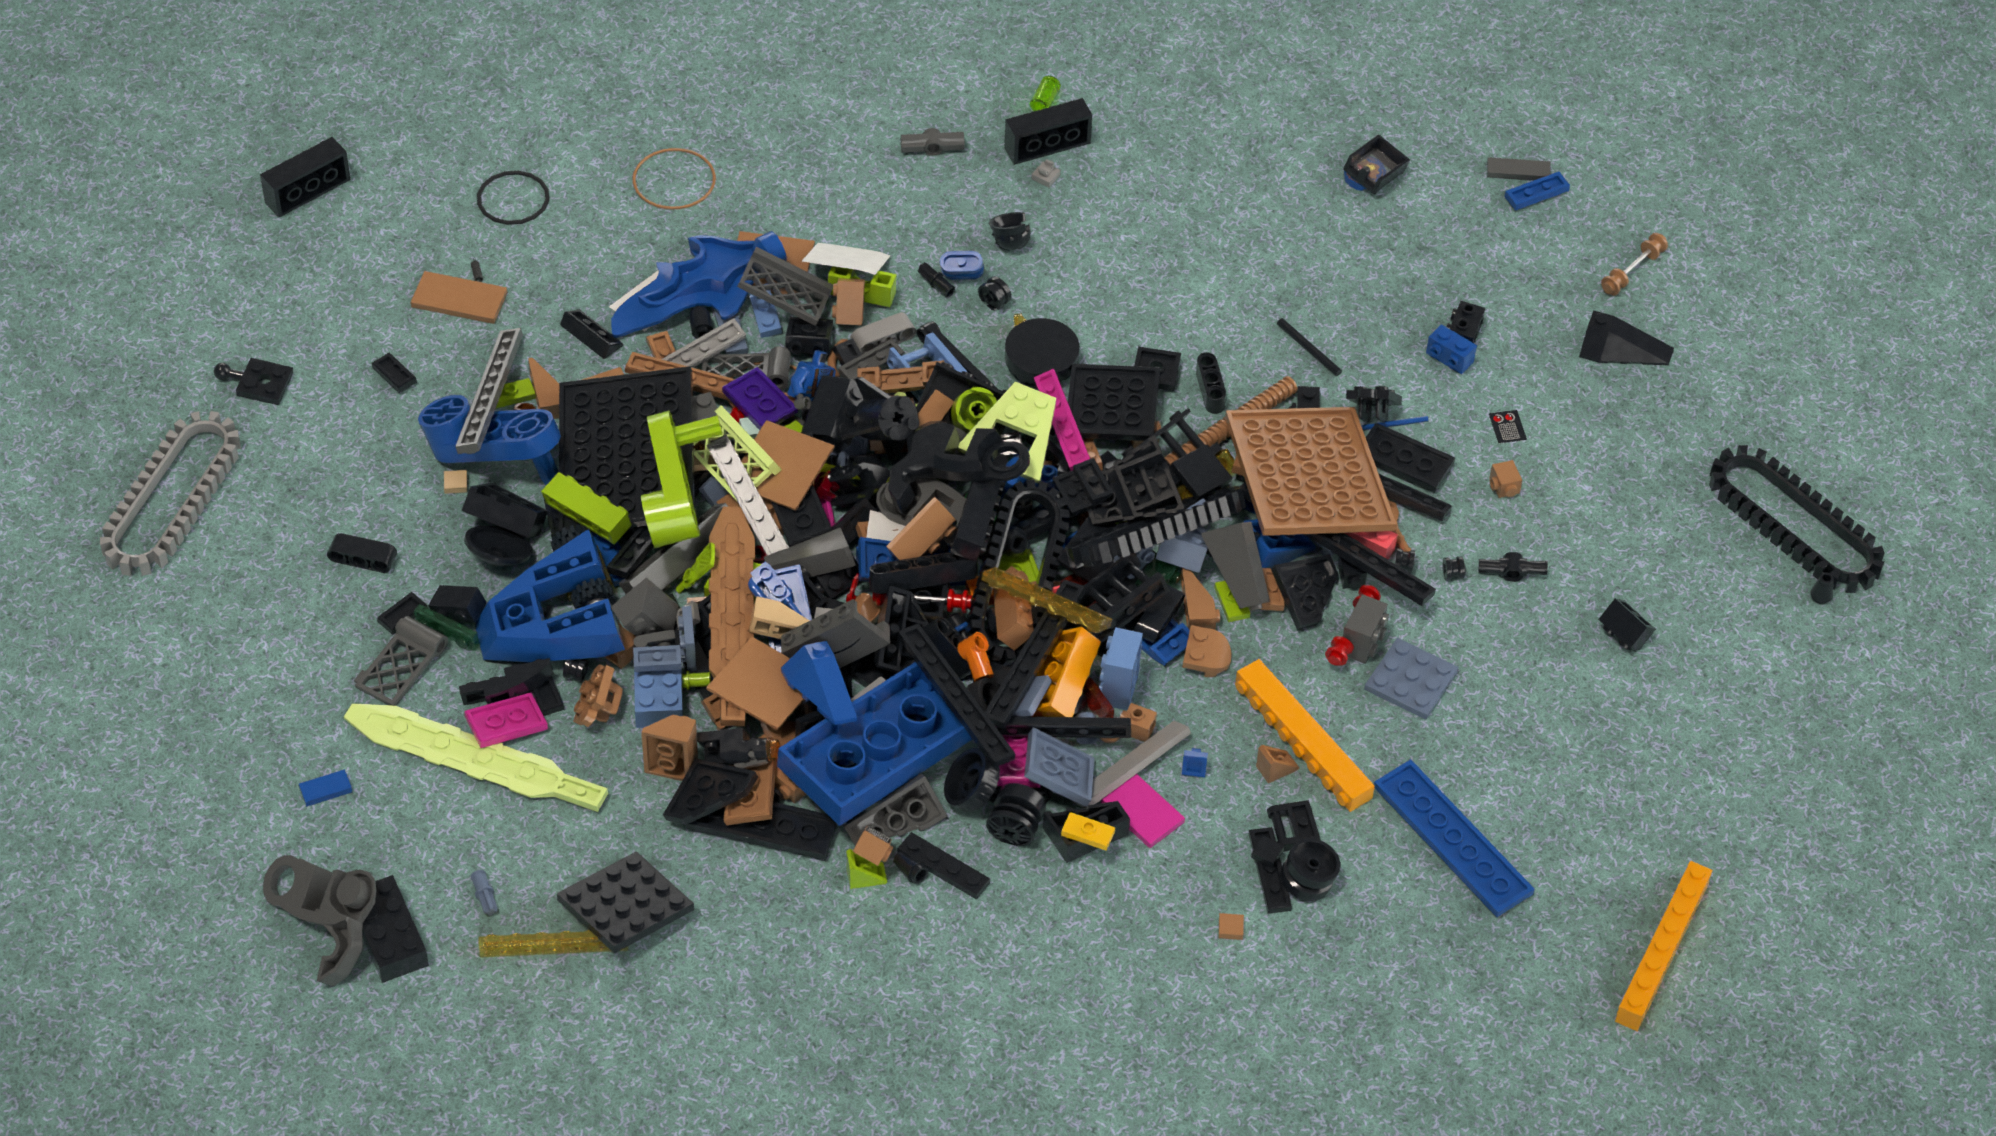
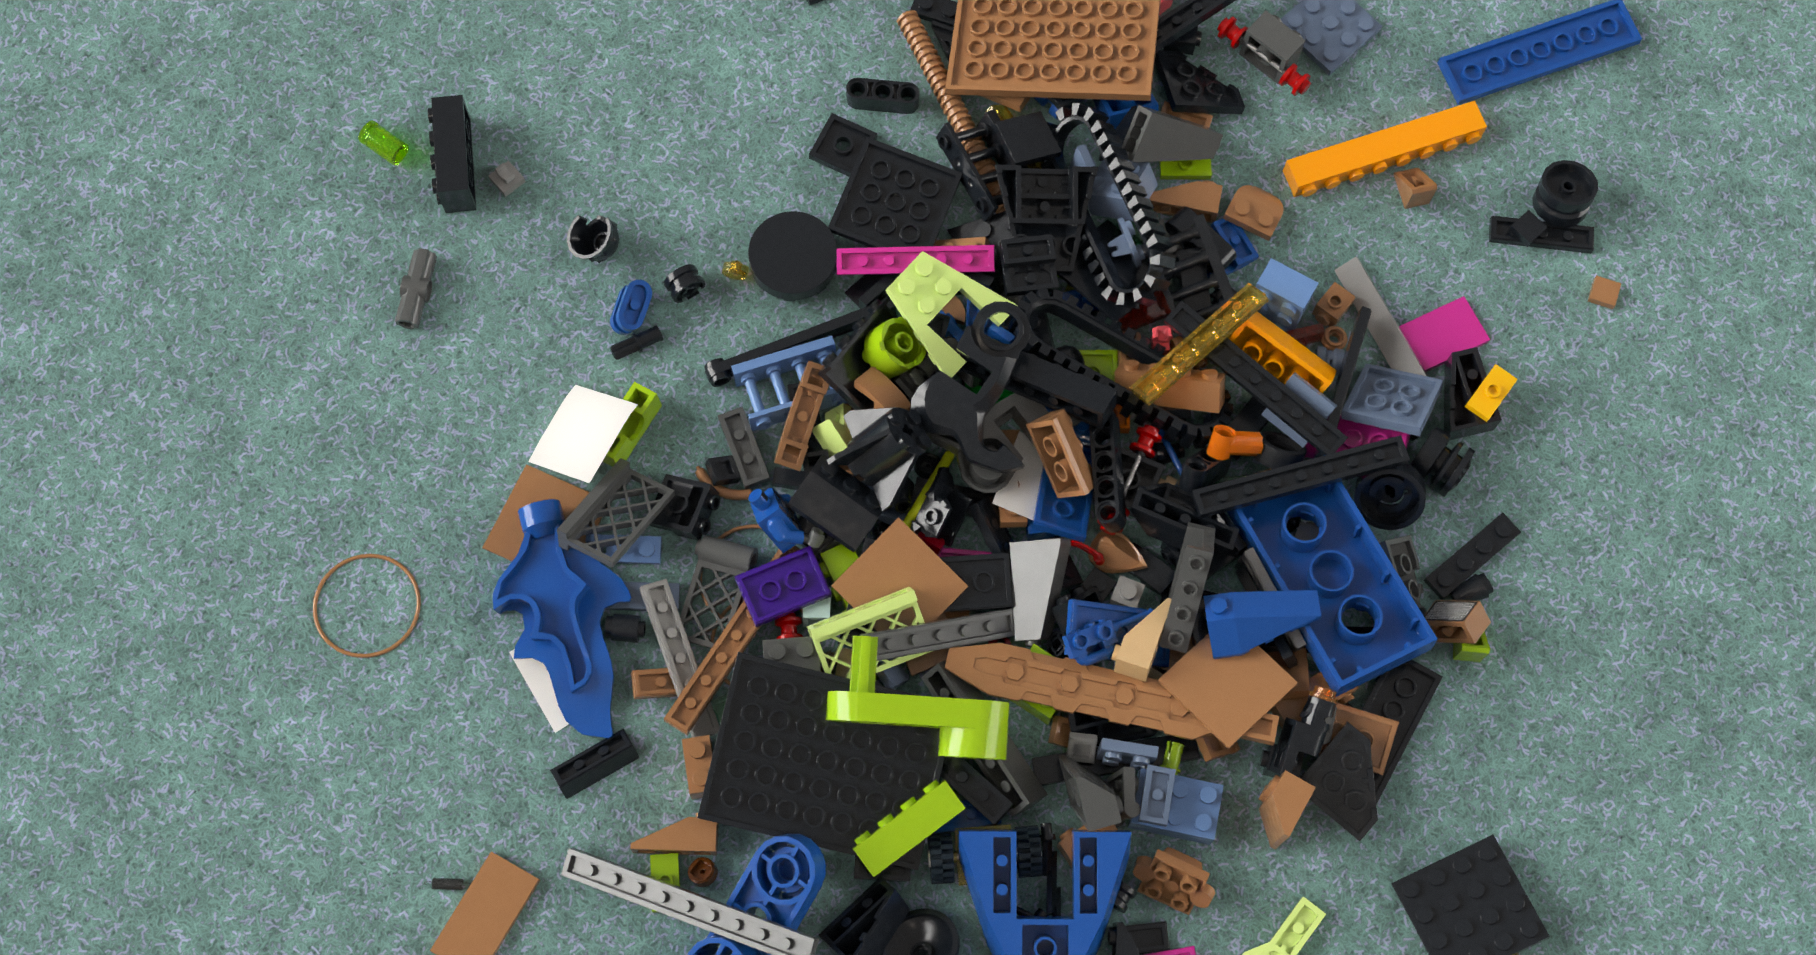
camera: 75 degrees left, 20 degrees up
(511, 222) = (296, 788): black piece -> none
(703, 564) = (1023, 715): lime piece -> none
(849, 301) = (655, 446): medium nougat brick -> none
(893, 327) = (705, 422): light grey beam -> none
(1194, 763) = (1396, 265): blue tile -> none
(1300, 820) = (1494, 186): black plate -> none

